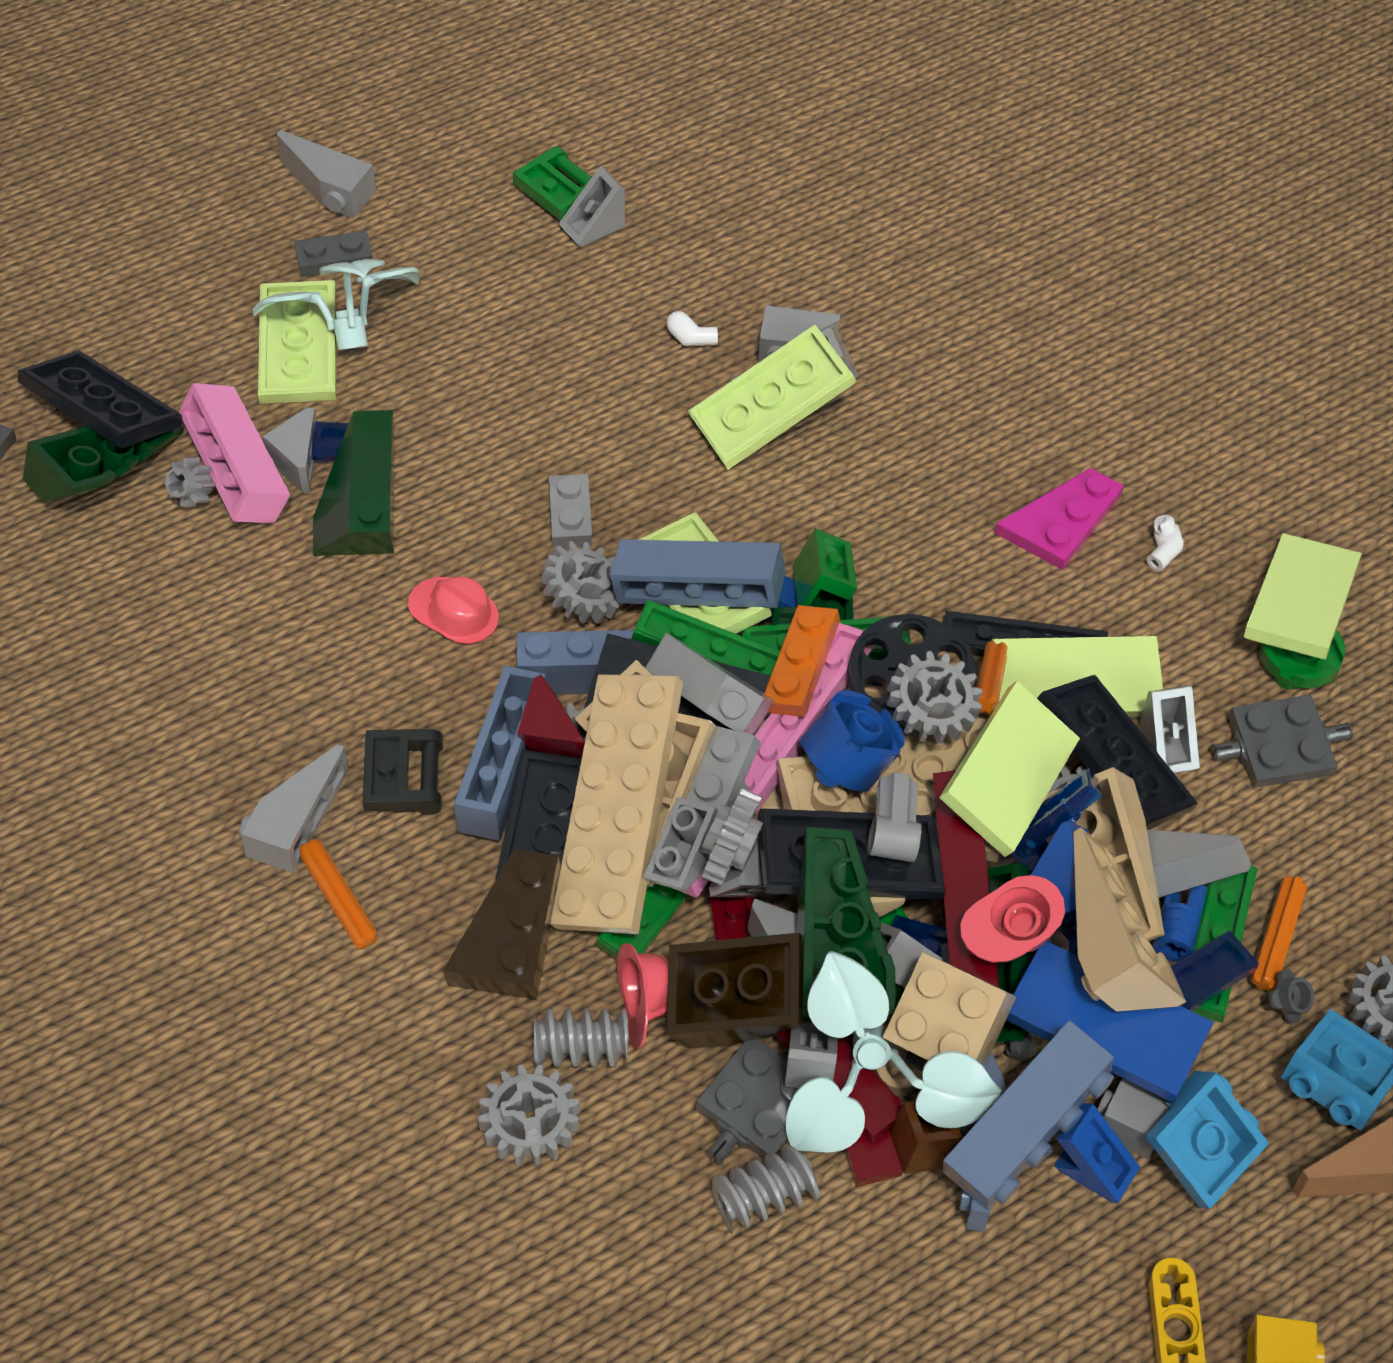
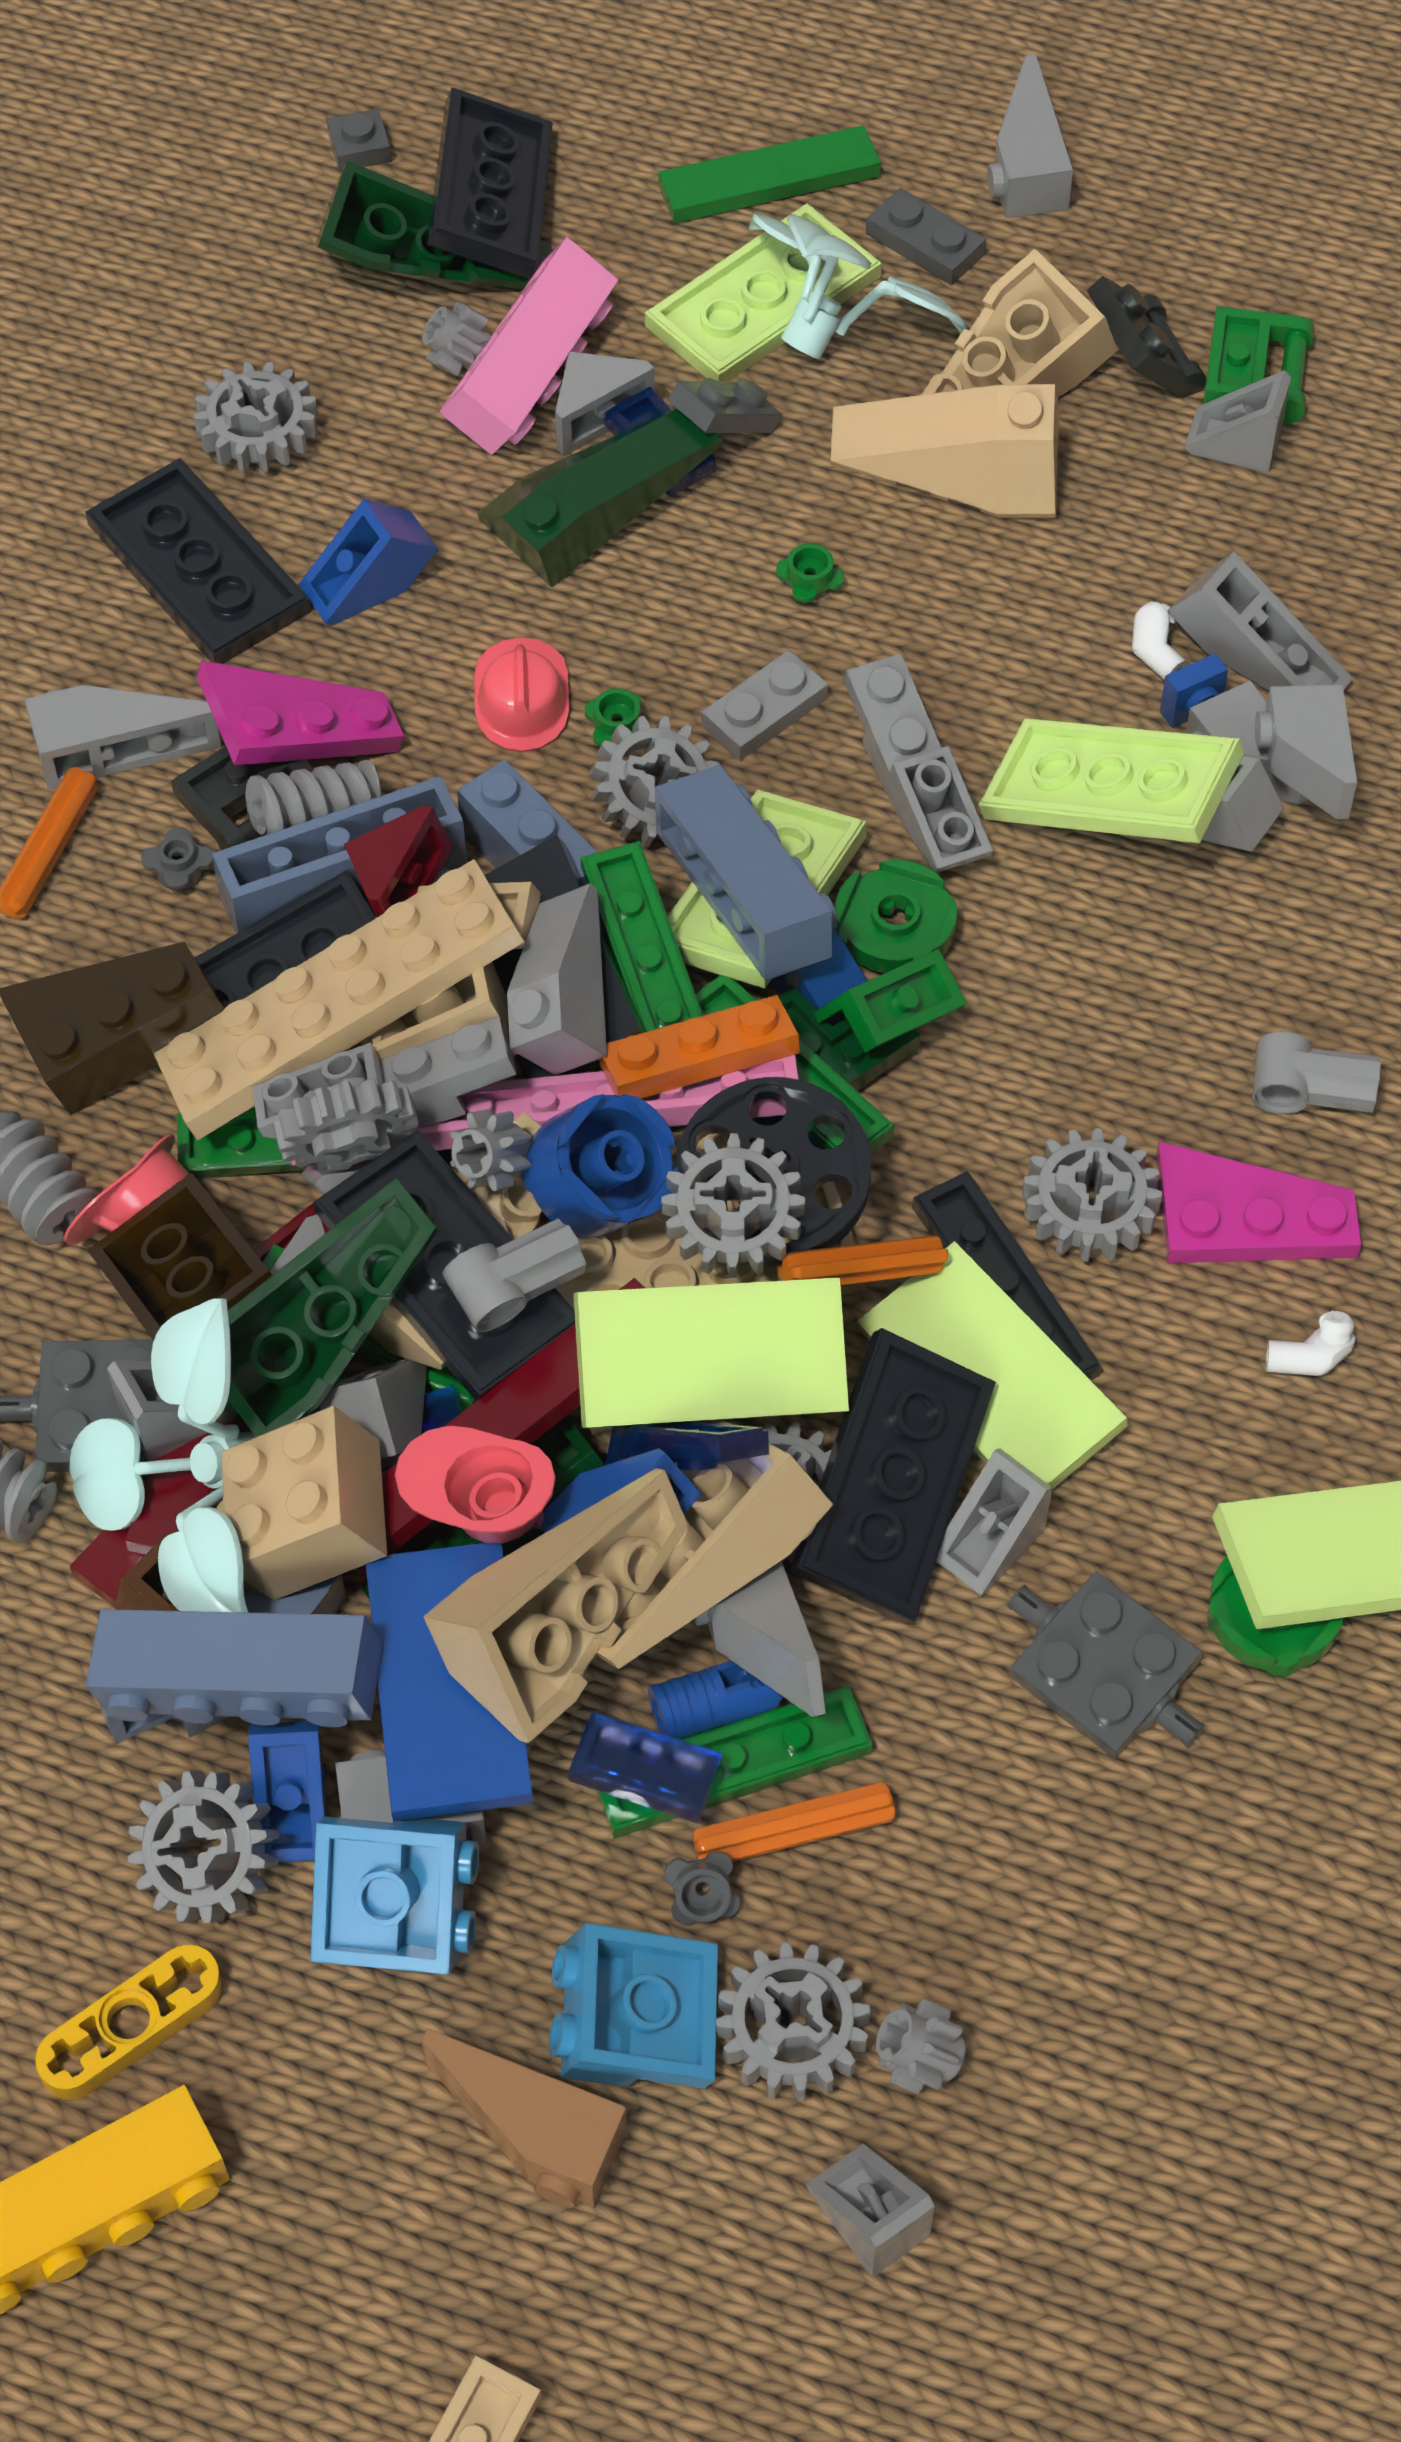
camera: 55 degrees right, 5 degrees up
(145, 606) = (255, 416): none -> light grey gear
(208, 700) = (198, 562): none -> black tile
(219, 288) = (769, 174): none -> green tile
(301, 619) = (367, 561): none -> blue slope
(368, 396) = (725, 406): none -> dark grey plate
(379, 716) = (295, 718): none -> dark pink wing
(414, 845) = (179, 873): none -> dark grey plate
(451, 740) = (306, 795): none -> light grey piece
(460, 263) = (1029, 333): none -> tan wedge
(504, 317) = (964, 445): none -> tan wedge
(505, 436) = (811, 560): none -> green plate
(514, 568) = (610, 706): none -> green plate
(516, 209) = (1146, 337): none -> pearl dark grey plate
(687, 477) = (913, 766): none -> light grey slope
(726, 289) = (1252, 630): none -> light grey slope
(742, 335) = (1190, 687): none -> blue plate
(779, 526) = (895, 886): none -> green plate
(806, 793) = (490, 1149): none -> light grey gear
(840, 303) = (1310, 744): none -> light grey slope
(1006, 445) = (1295, 1074): none -> light grey piece
(1007, 568) = (1060, 1197): none -> light grey gear
(1091, 1233) = (207, 1877): none -> light grey gear

